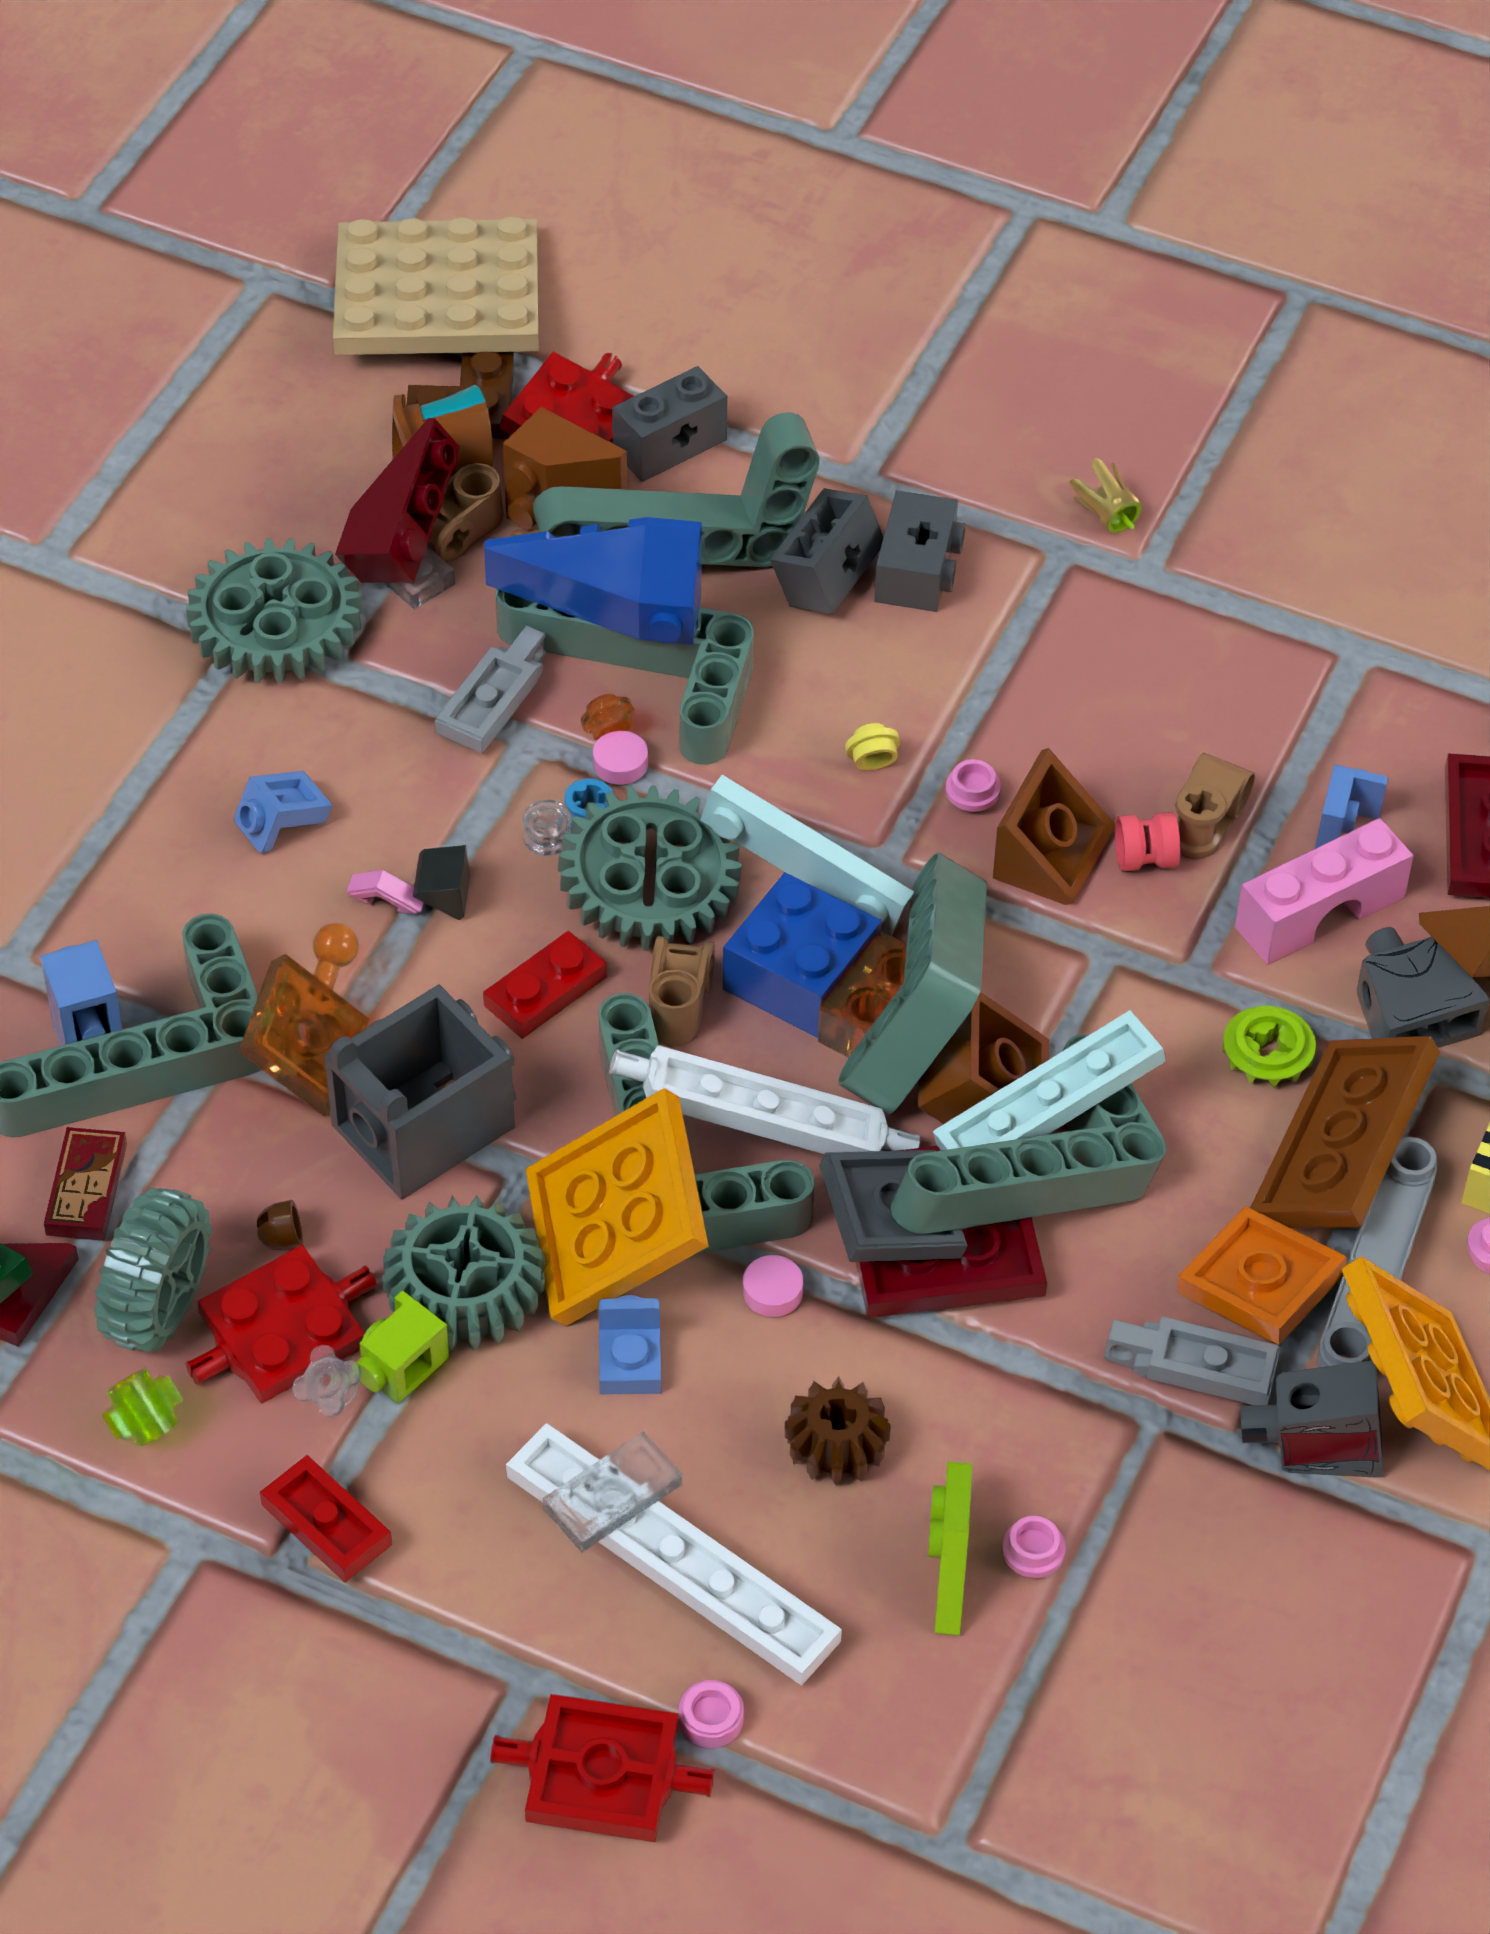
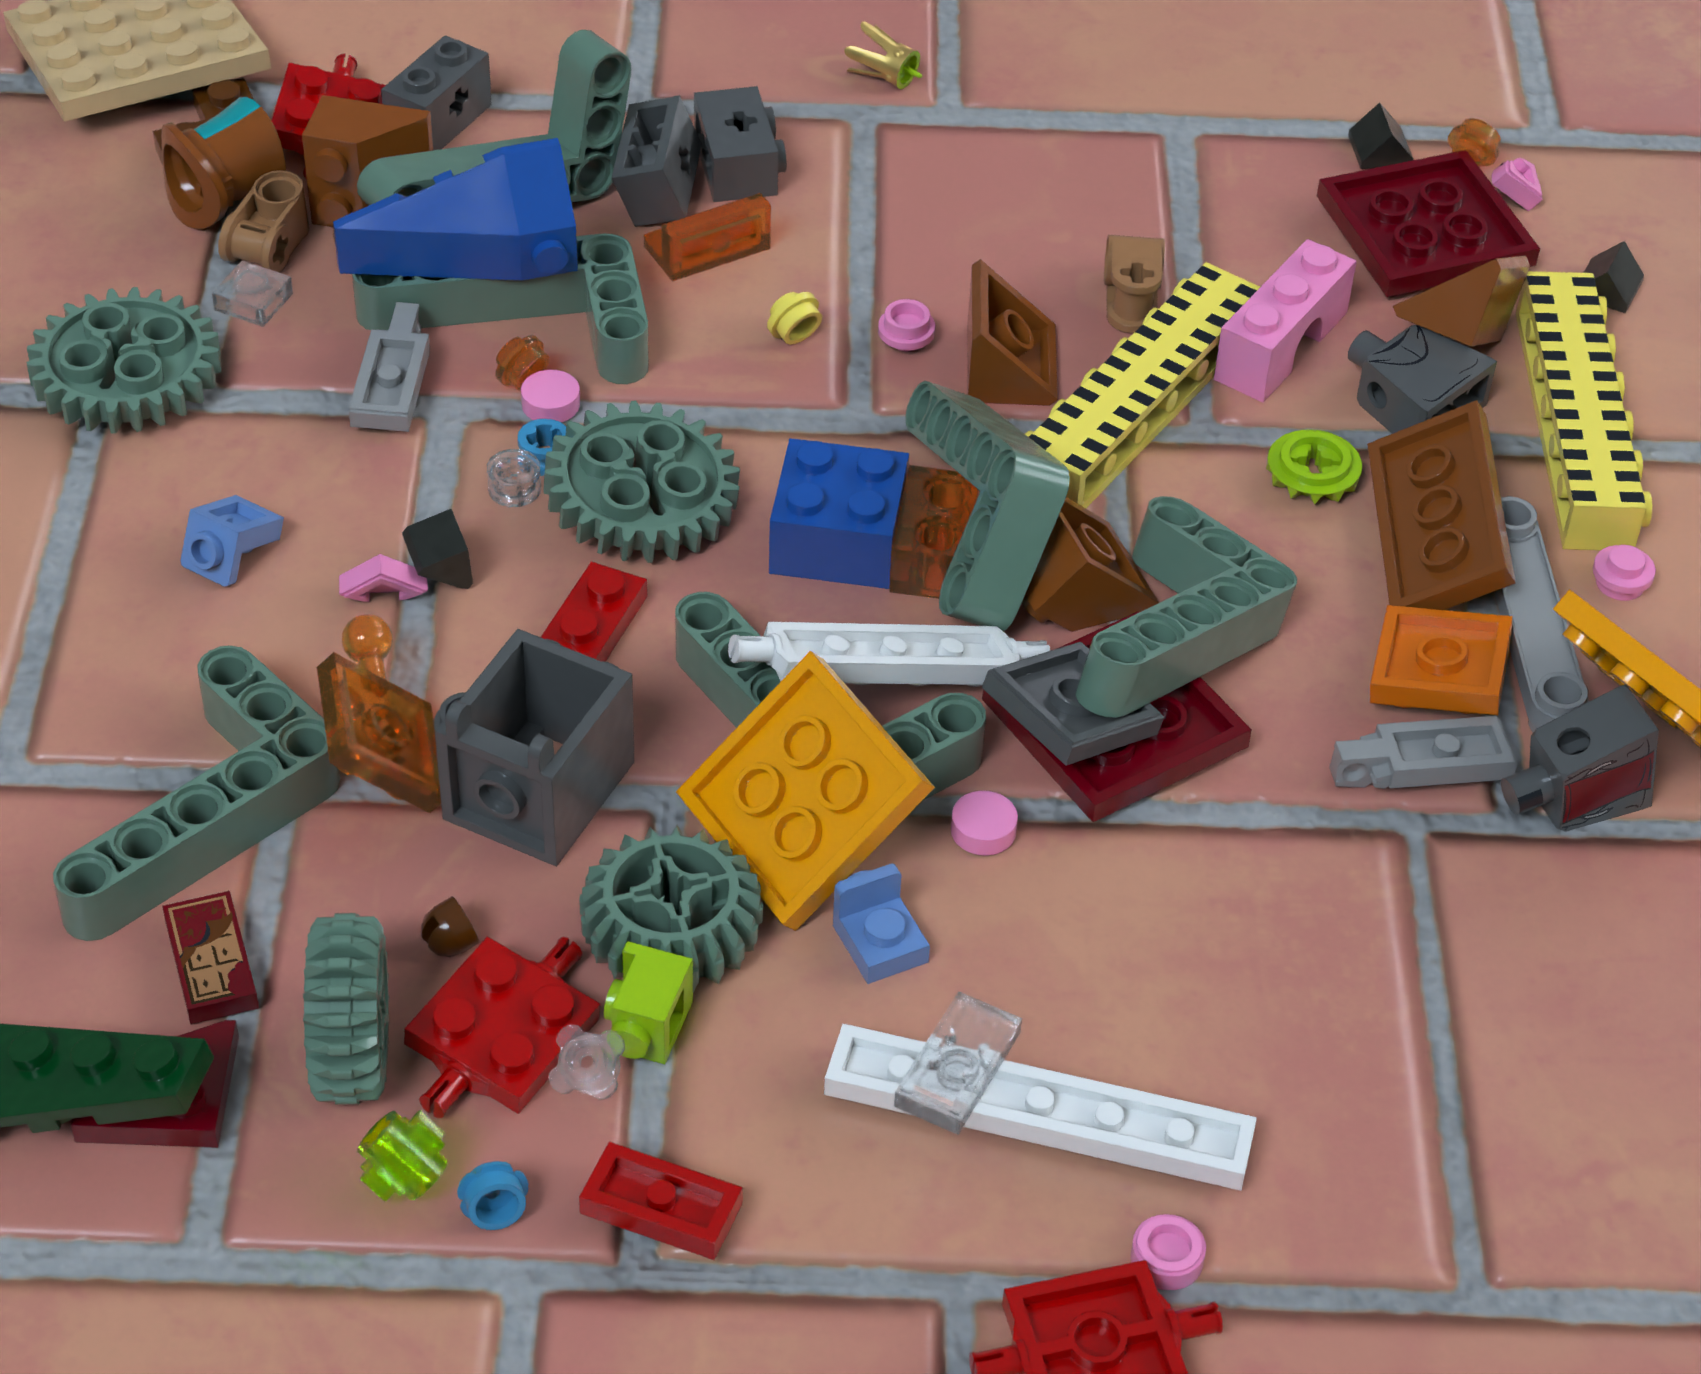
camera: 25 degrees left, 5 degrees down
(80, 993) = (123, 762): medium blue brick -> none
(199, 1465) = (493, 1195): none -> dark azure plate
(396, 514) = (214, 236): dark red slope -> none
(679, 989) = (734, 571): medium nougat piece -> none
(804, 853) = (776, 413): light aqua plate -> none
(837, 1430) = (1134, 932): reddish brown gear -> none
(845, 641) = (711, 237): none -> clear orange panel
(949, 1542) = (1318, 996): lime wing -> none
(1033, 1547) = (1384, 976): bright pink plate -> none
(1058, 1087) = (1170, 545): light aqua plate -> none
(1135, 920) = (1142, 383): none -> light yellow brick
(1147, 841) = (1098, 325): coral wheel -> none
(1350, 794) = (1257, 241): medium blue bracket -> none

